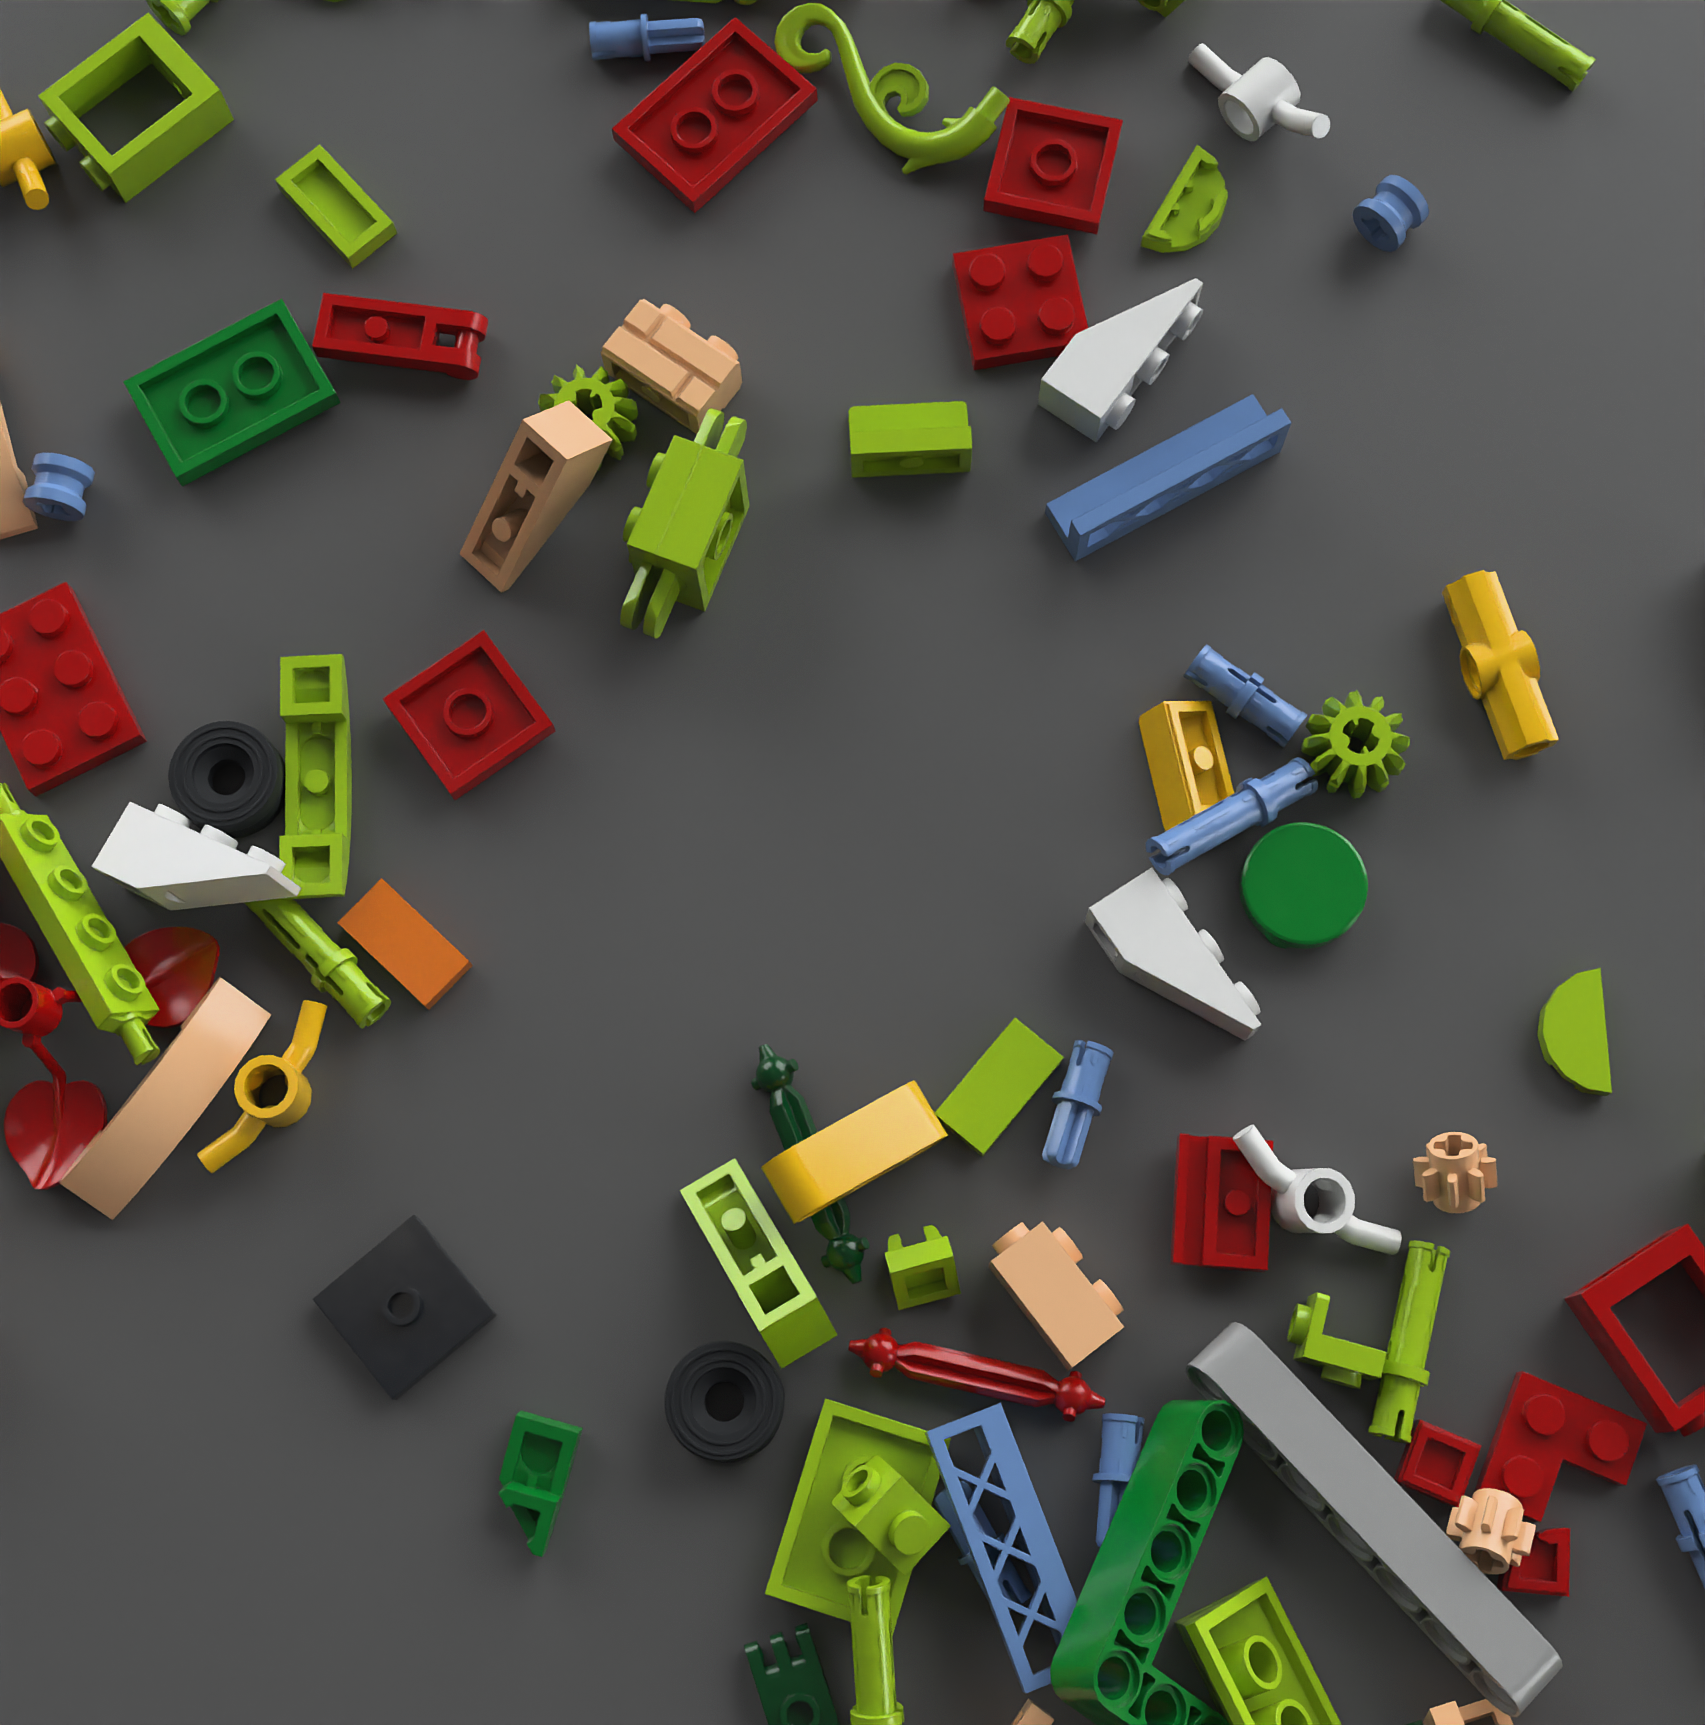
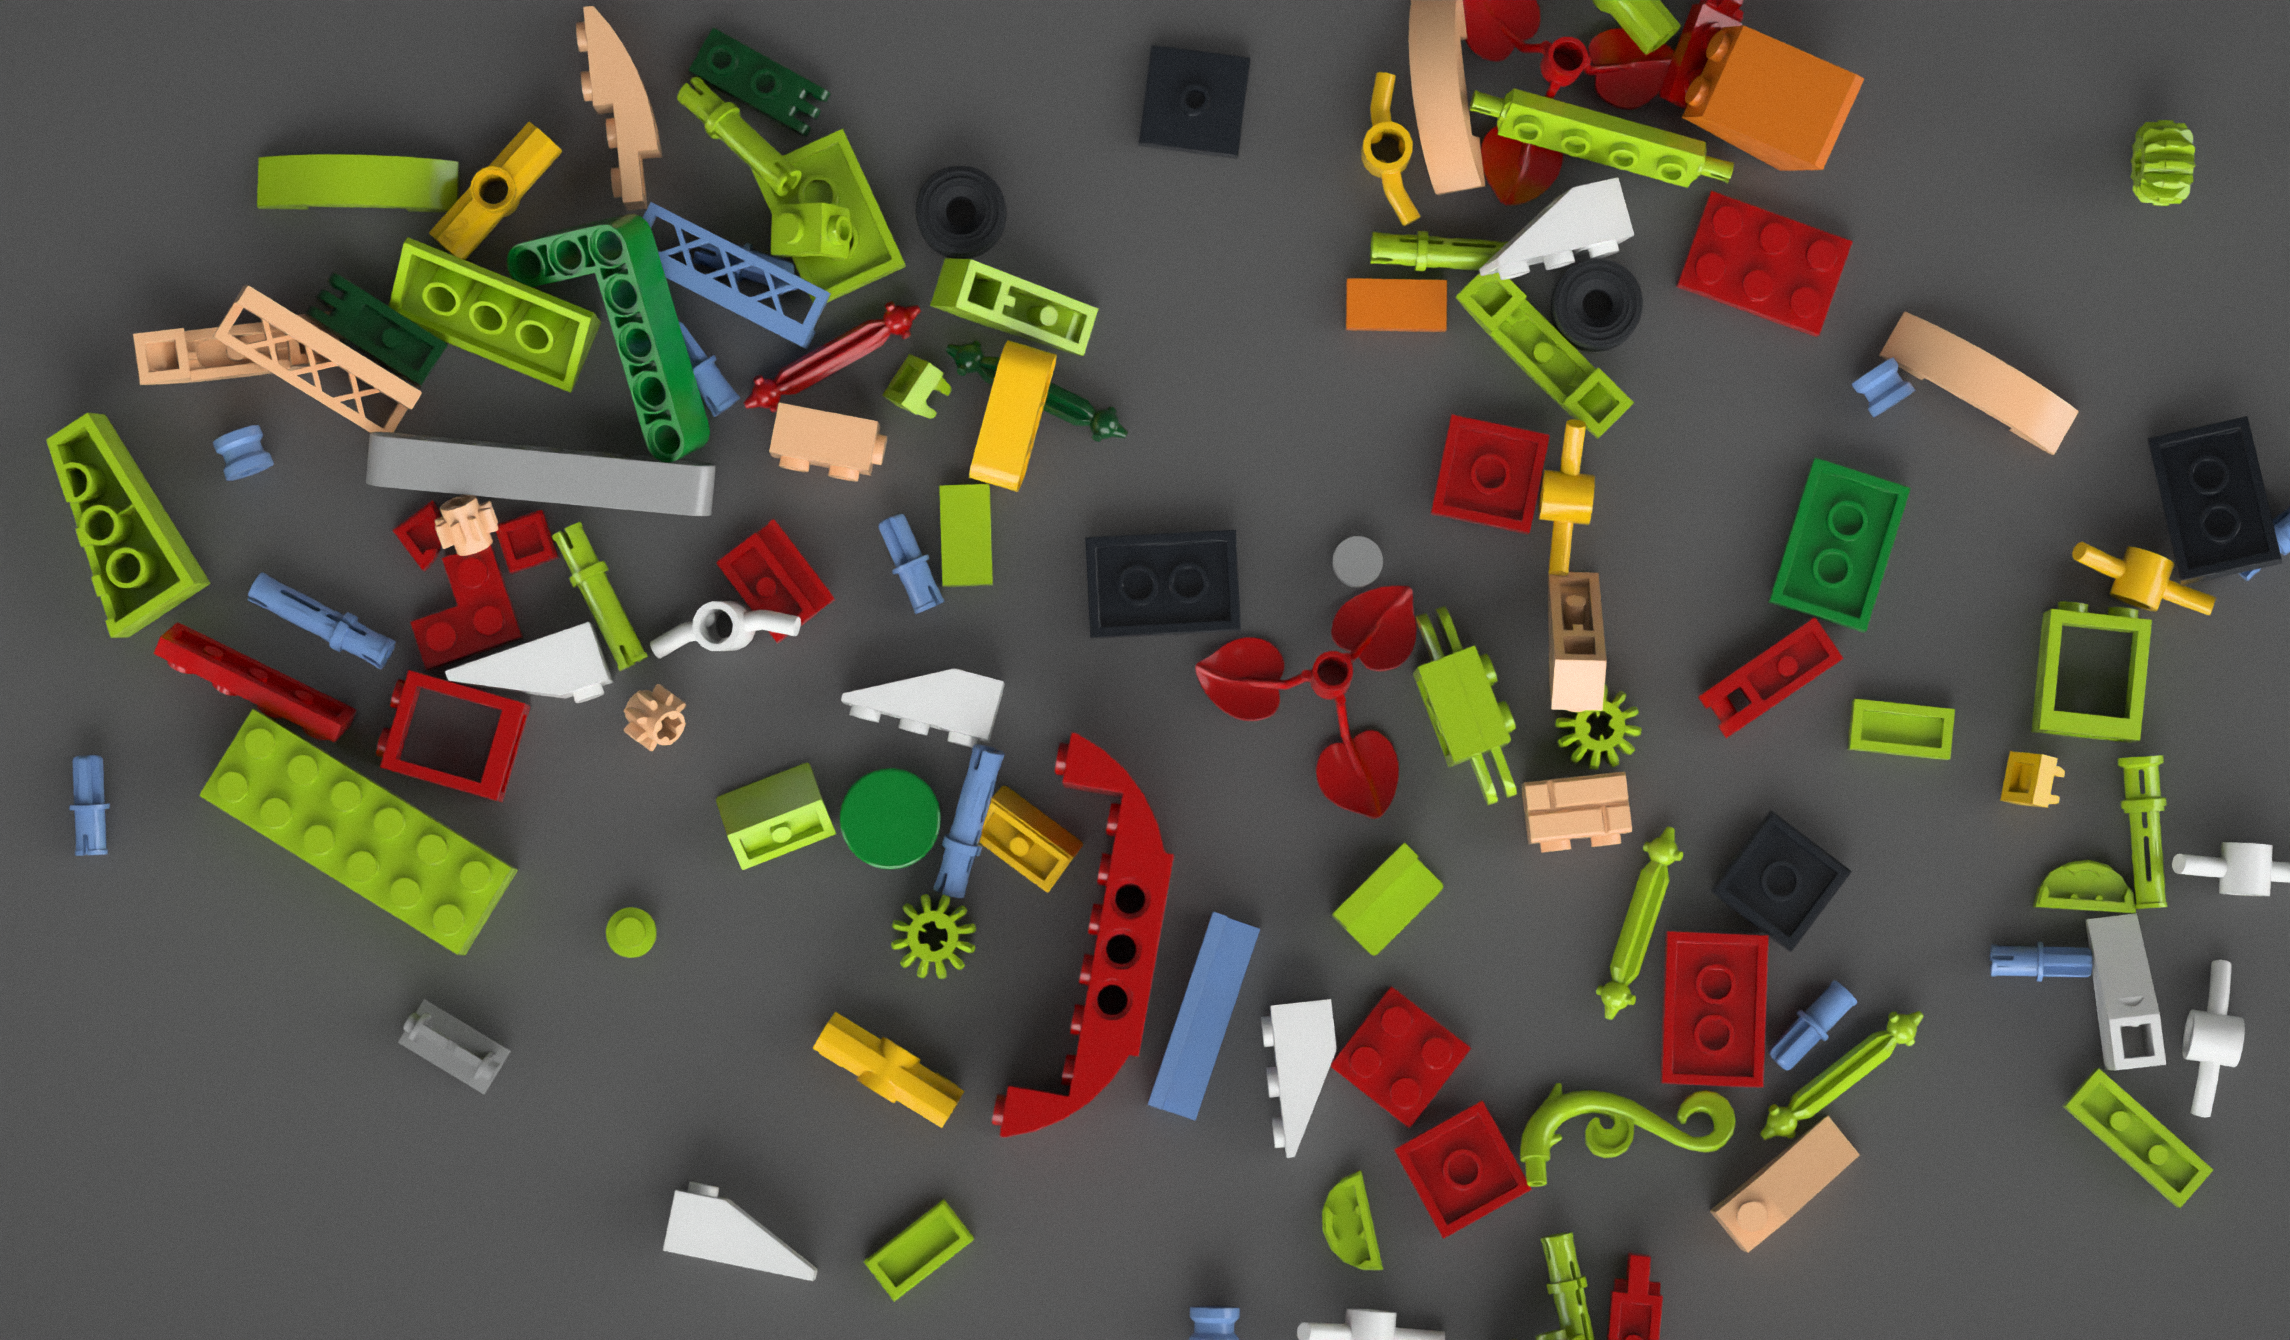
camera: 135 degrees right, 10 degrees up
(272, 71) = (2030, 779): none -> yellow tile
(420, 632) = (1566, 497): none -> yellow piece
(537, 1474) = (1031, 80): green slope -> none
(558, 168) = (1780, 881): none -> black plate
(660, 745) = (1357, 561): none -> light grey tile
(700, 666) = (1375, 628): none -> red plant
(709, 236) = (1639, 923): none -> lime wheel
(856, 877) = (1163, 584): none -> black plate
(1211, 564) = (1135, 861): none -> red slope
(1245, 695) = (1028, 911): medium blue pin -> none
(1341, 1360) = (631, 548): lime bracket -> none
(1411, 985) = (775, 816): none -> lime panel
(1525, 1316) = (551, 666): none -> white slope
(1575, 1033) = (653, 873): lime tile -> none
(1601, 495) = (919, 1250): none -> lime tile
(1644, 994) = (631, 932): none -> lime plate

